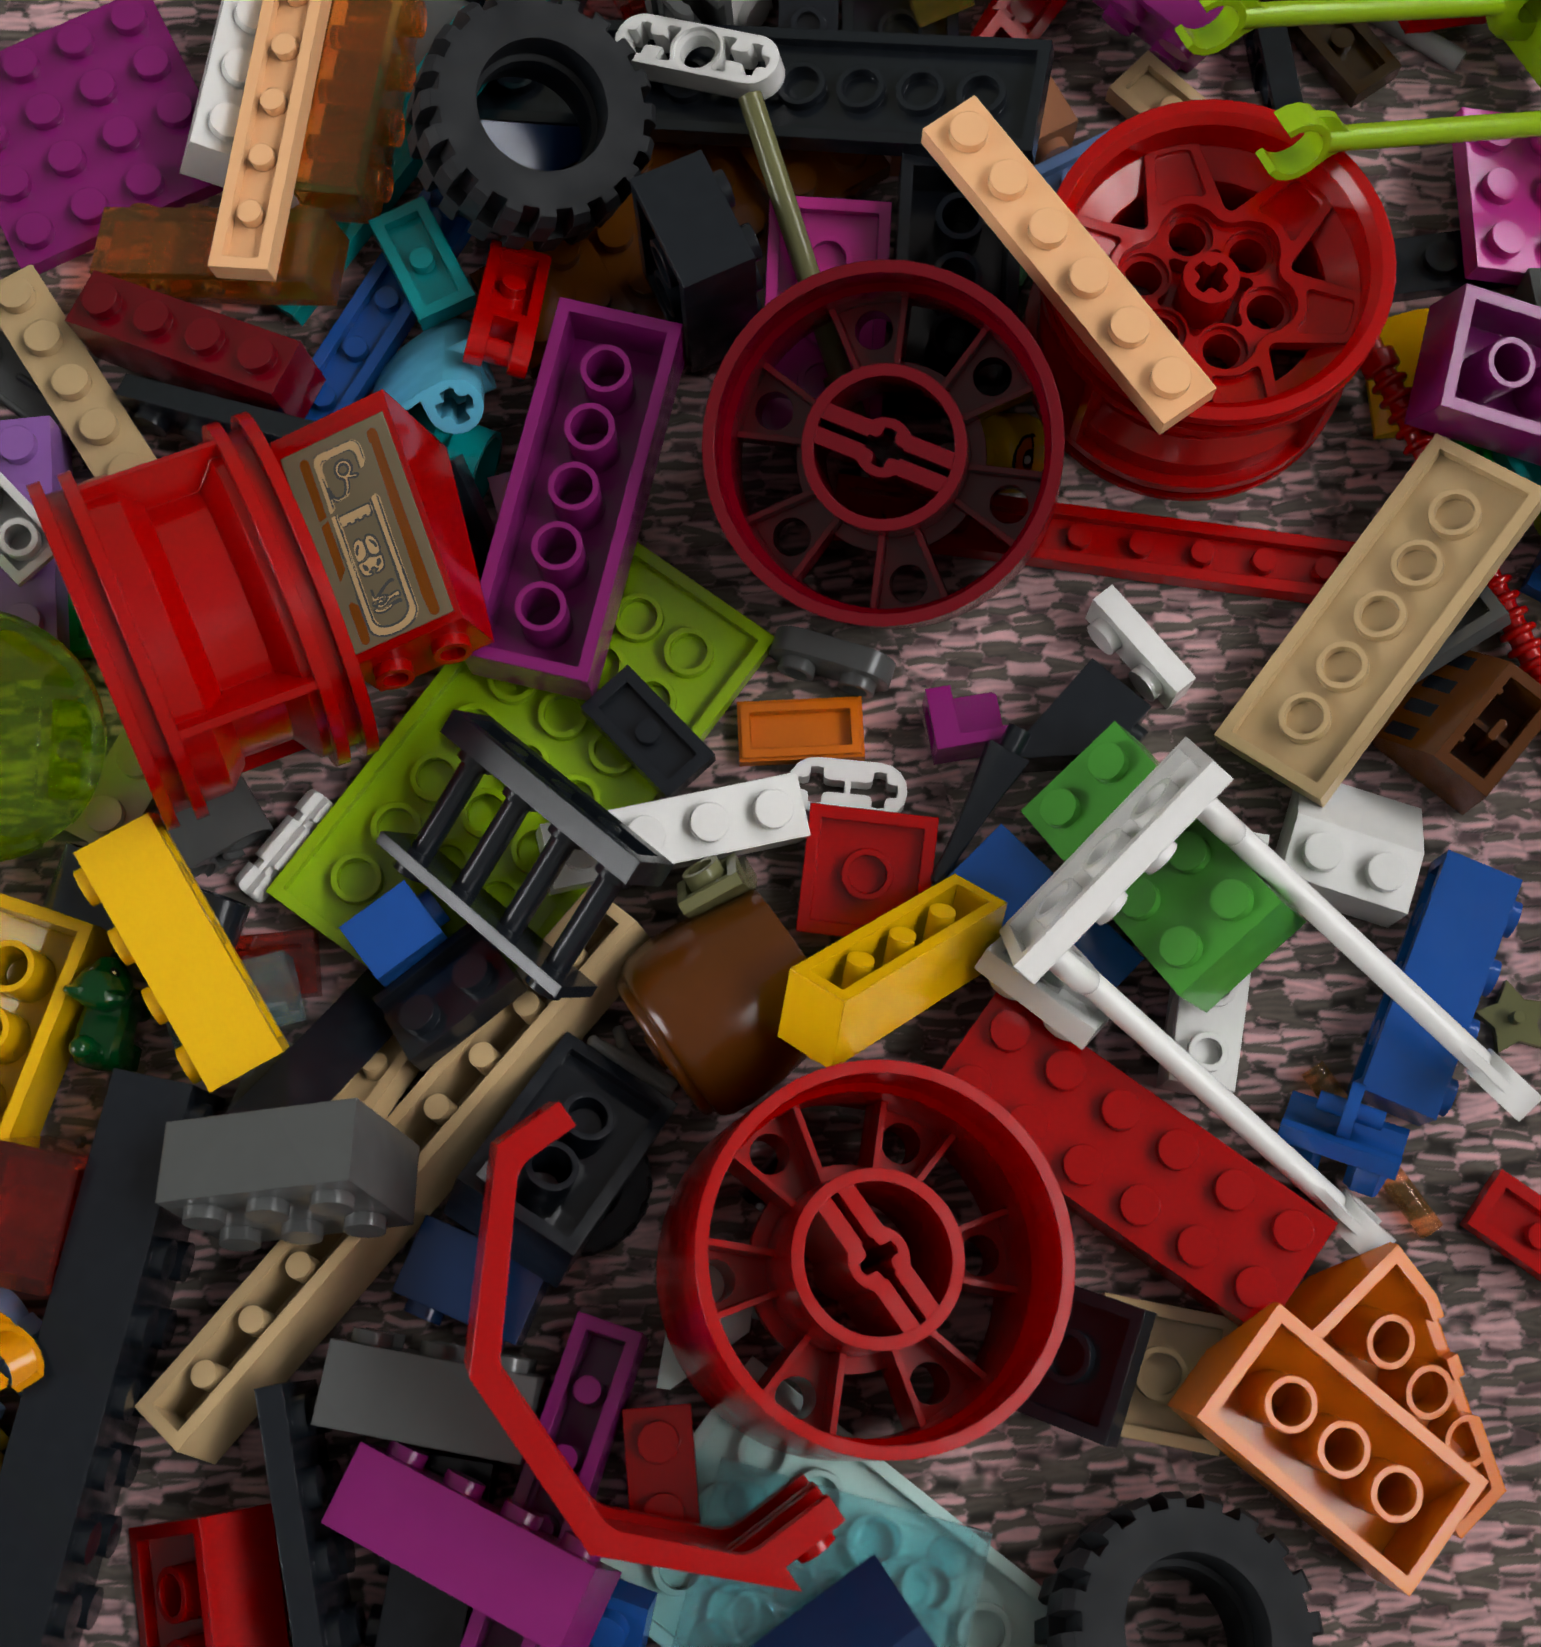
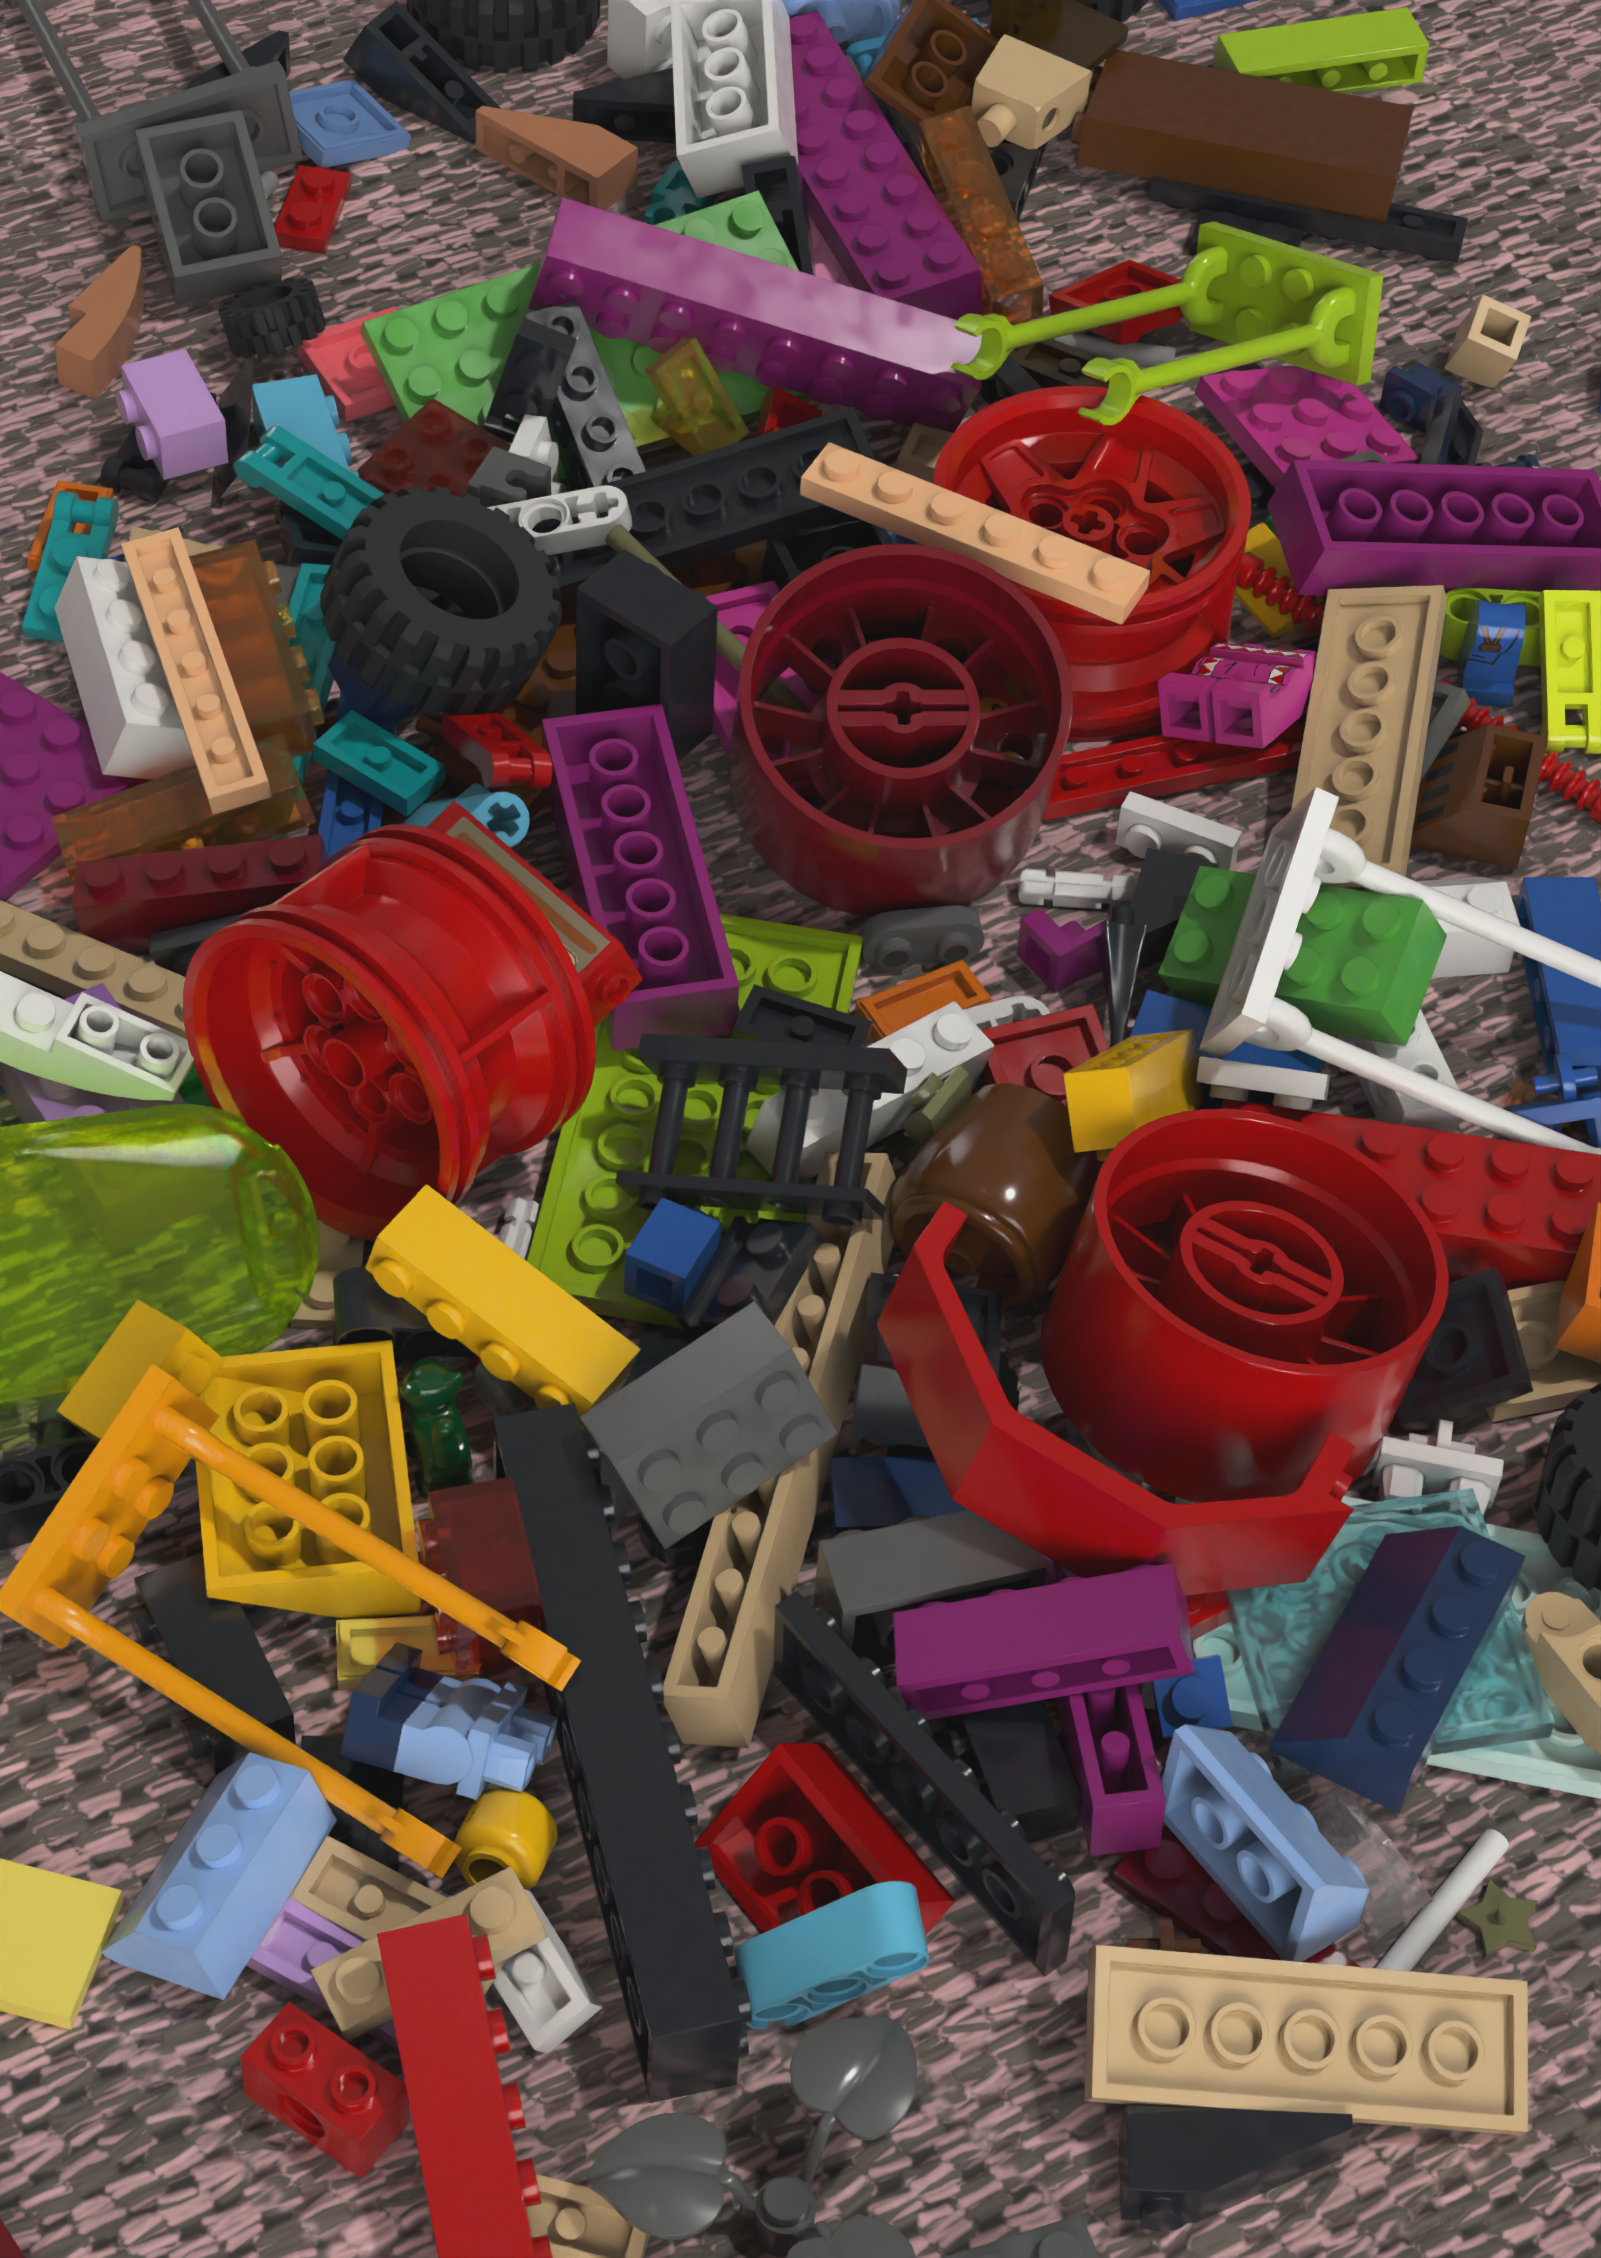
camera: 30 degrees left, 25 degrees down
(1006, 1501) = (1435, 1466): none -> white hips
(1014, 659) = (1075, 889): none -> white axle
(1284, 509) = (1238, 691): none -> dark pink hips

